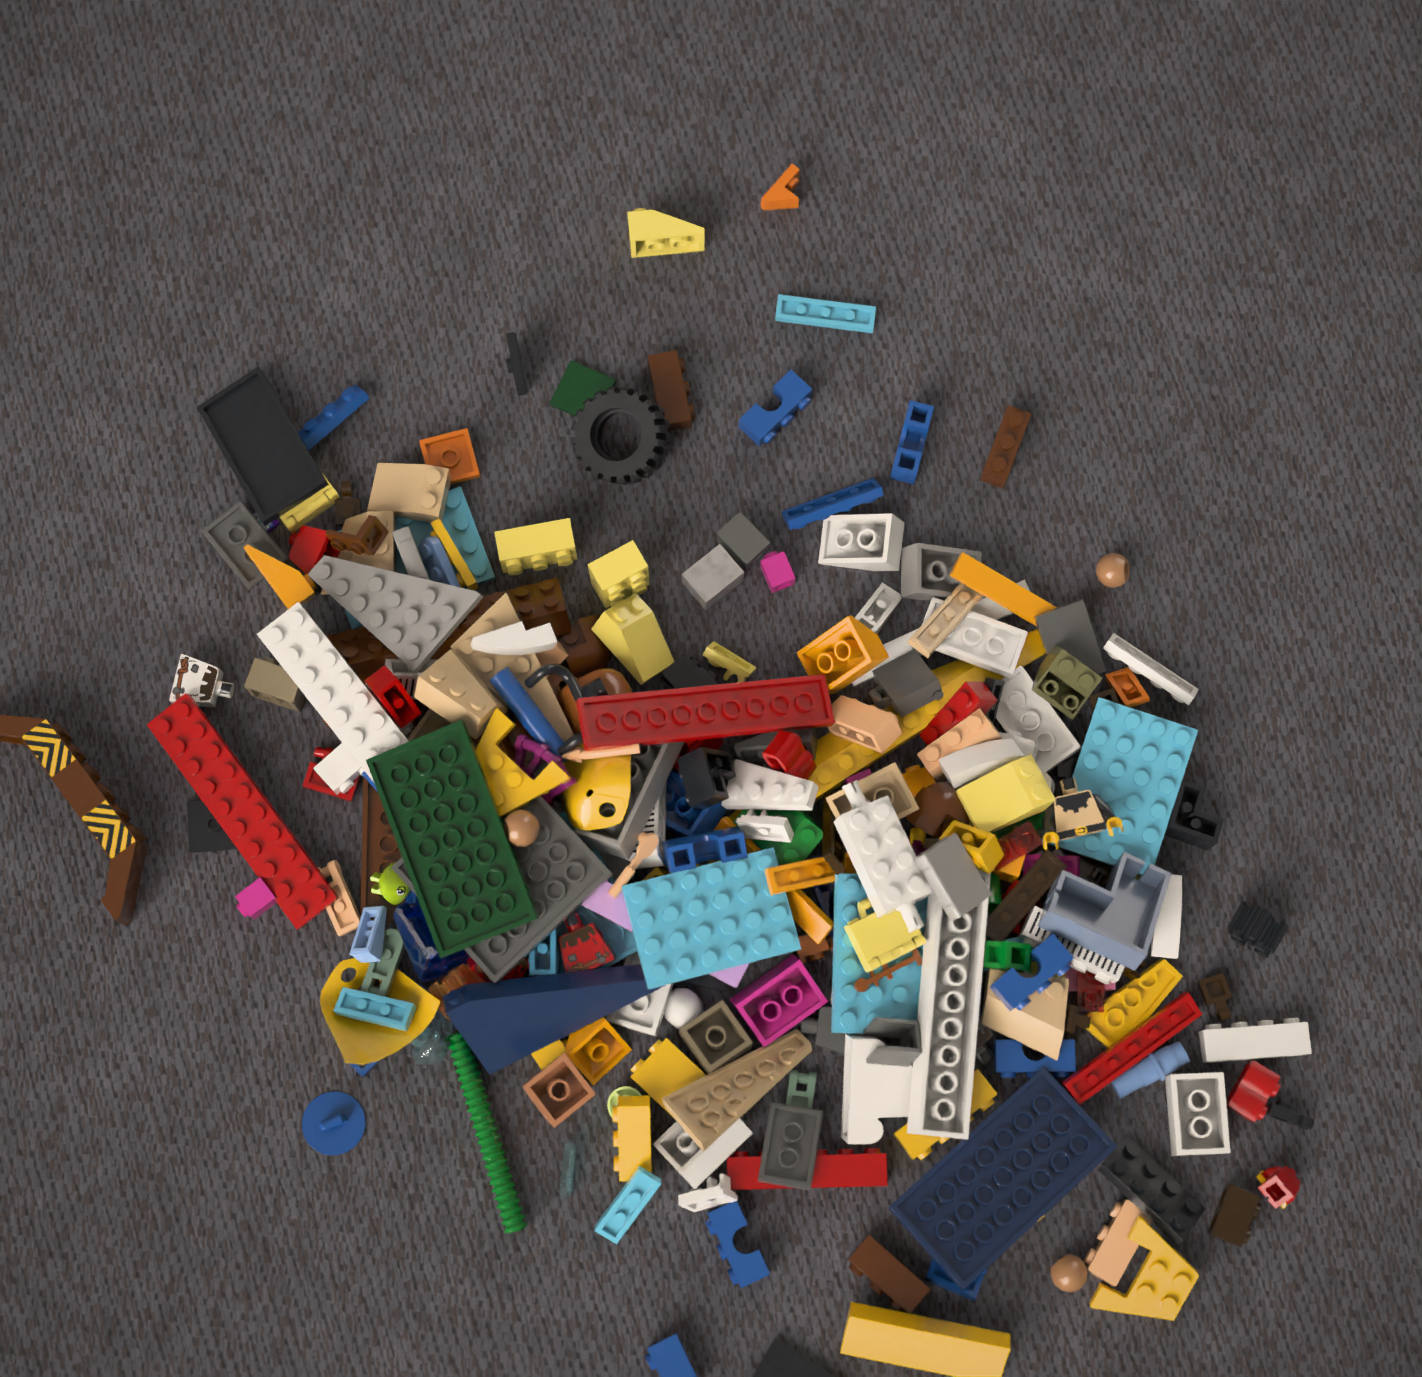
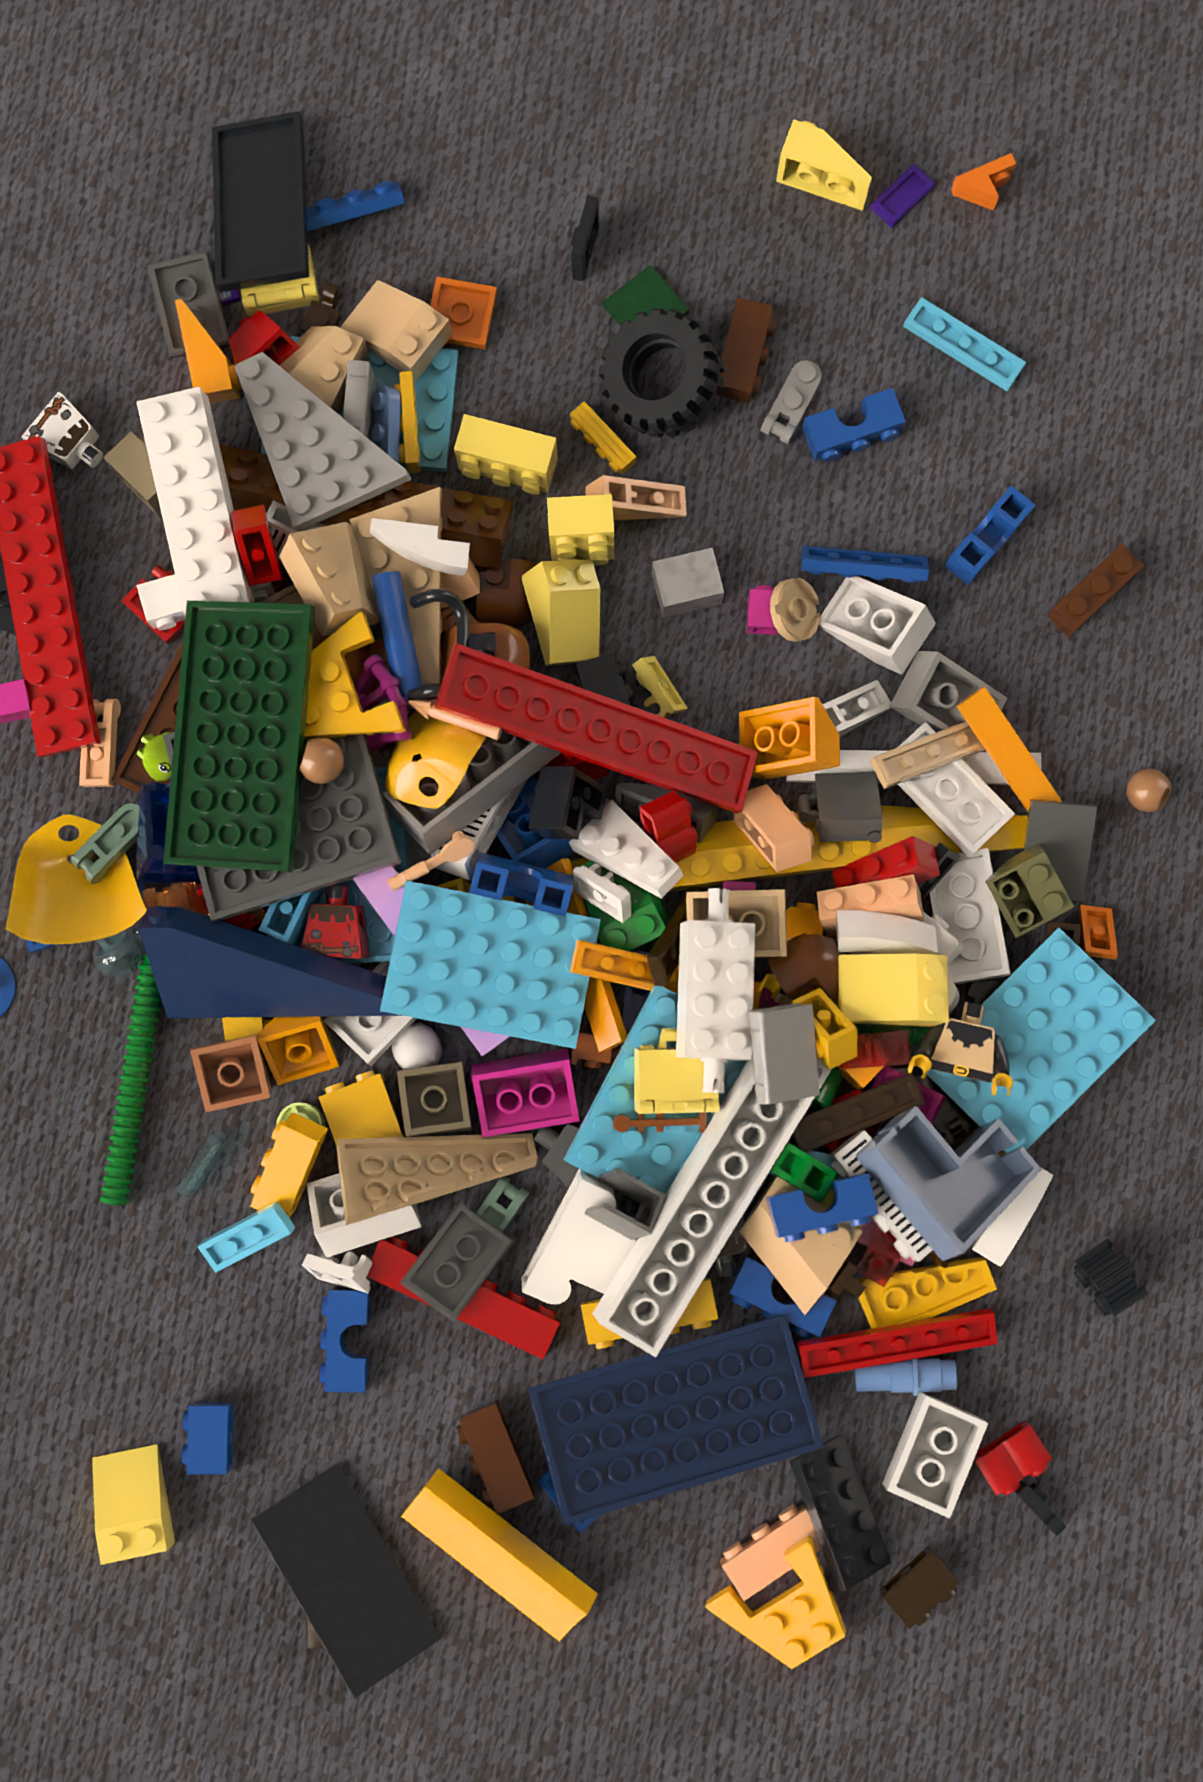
camera: 30 degrees right, 5 degrees up
(364, 542) = (313, 355): reddish brown bracket -> none
(369, 943) = (110, 800): light blue slope -> none
(375, 1009) = (75, 885): medium azure plate -> none
(599, 501) = (602, 437): none -> yellow piece
(647, 532) = (640, 498): none -> light nougat slope
(722, 410) = (793, 400): none -> light grey plate
(728, 227) = (902, 195): none -> dark purple tile
(743, 541) = (741, 558): dark grey piece -> none
(799, 560) = (794, 609): none -> tan tile
(1069, 1273) = (699, 1559): medium nougat piece -> none
(1143, 664) = (1140, 931): white plate -> none
(1190, 824) = (1091, 1119): black brick -> none
(1216, 992) = (1026, 1325): dark brown plate -> none
(1254, 1042) = (1041, 1404): white brick -> none
(1279, 1185) = (988, 1579): red piece -> none

